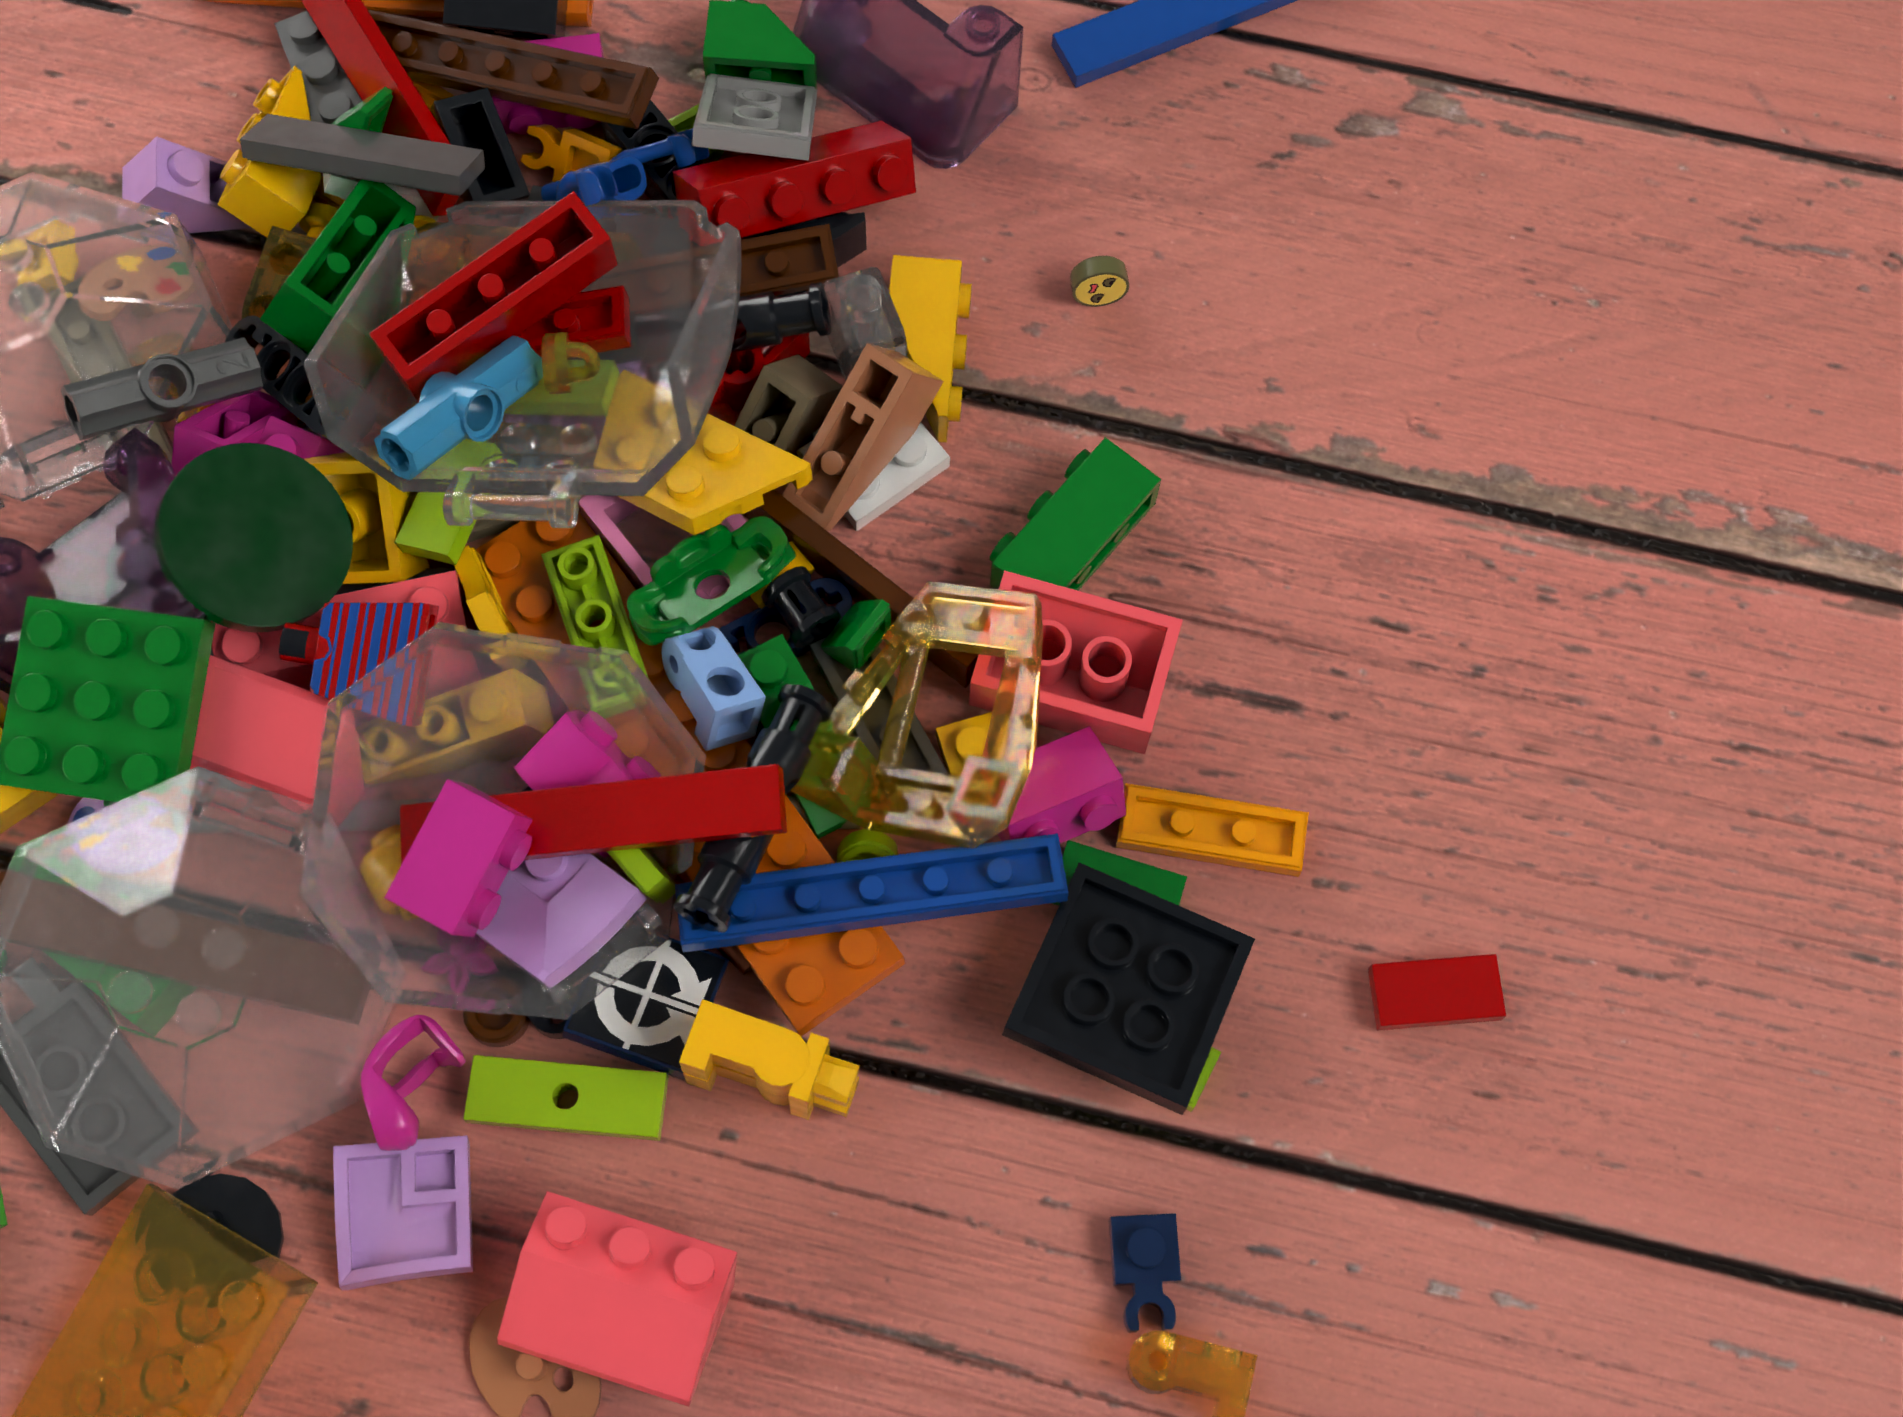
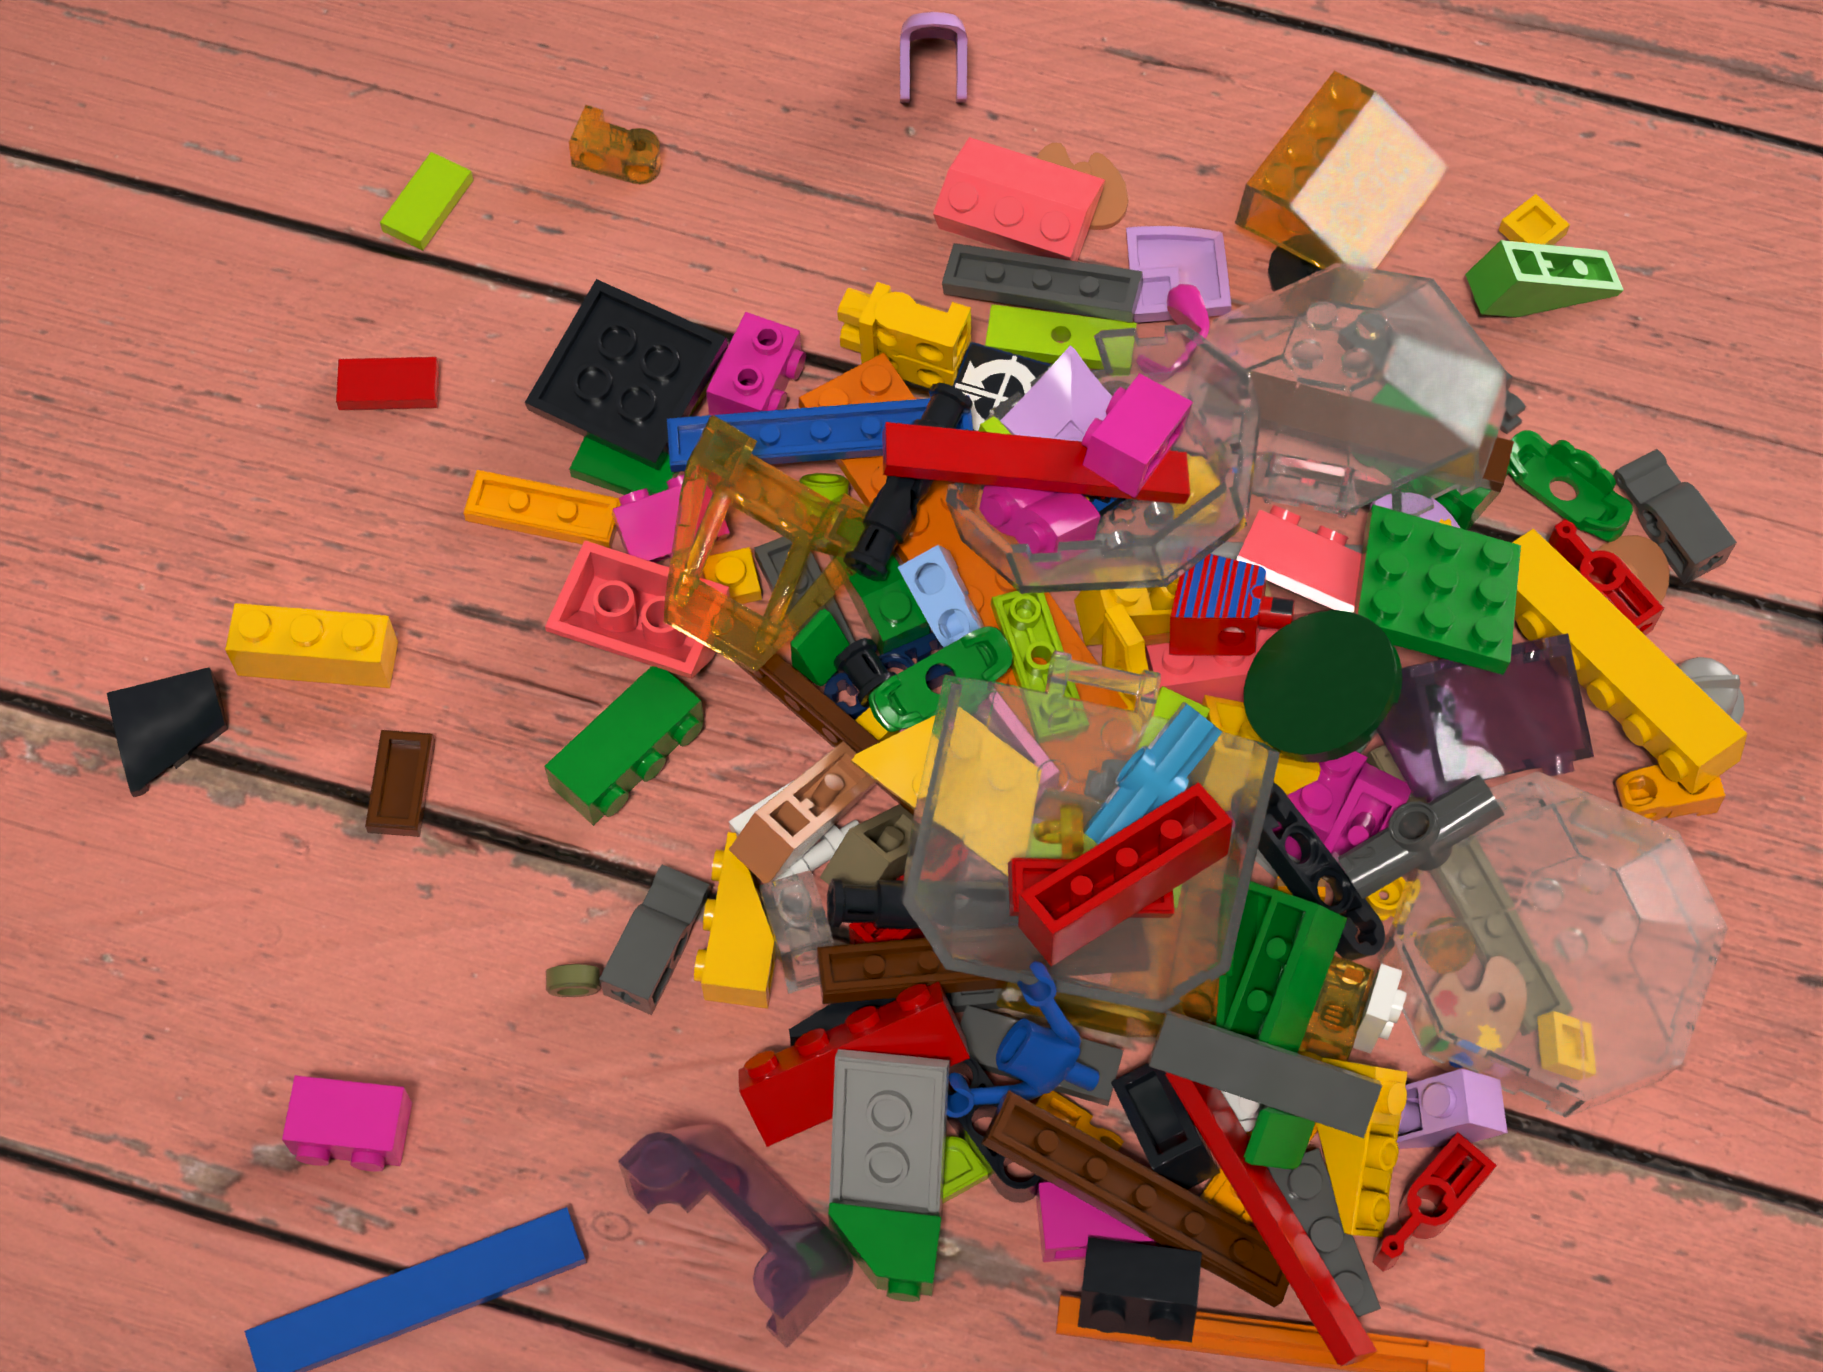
camera: 175 degrees left, 5 degrees down
(212, 103) = (1435, 1187): none -> red piece
(234, 255) = (1381, 1008): none -> white plate
(595, 1172) = (1042, 282): none -> dark grey plate
(964, 1019) = (756, 368): none -> dark pink brick
(1018, 325) = (654, 940): none -> dark grey piece
(1145, 1257) = (639, 221): dark blue plate -> none
(1308, 138) = (347, 1122): none -> dark pink brick
(1321, 491) = (400, 783): none -> reddish brown tile
(1440, 1278) = (426, 201): none -> lime tile
(1454, 623) = (312, 645): none -> yellow brick
(1600, 536) = (164, 723): none -> black slope

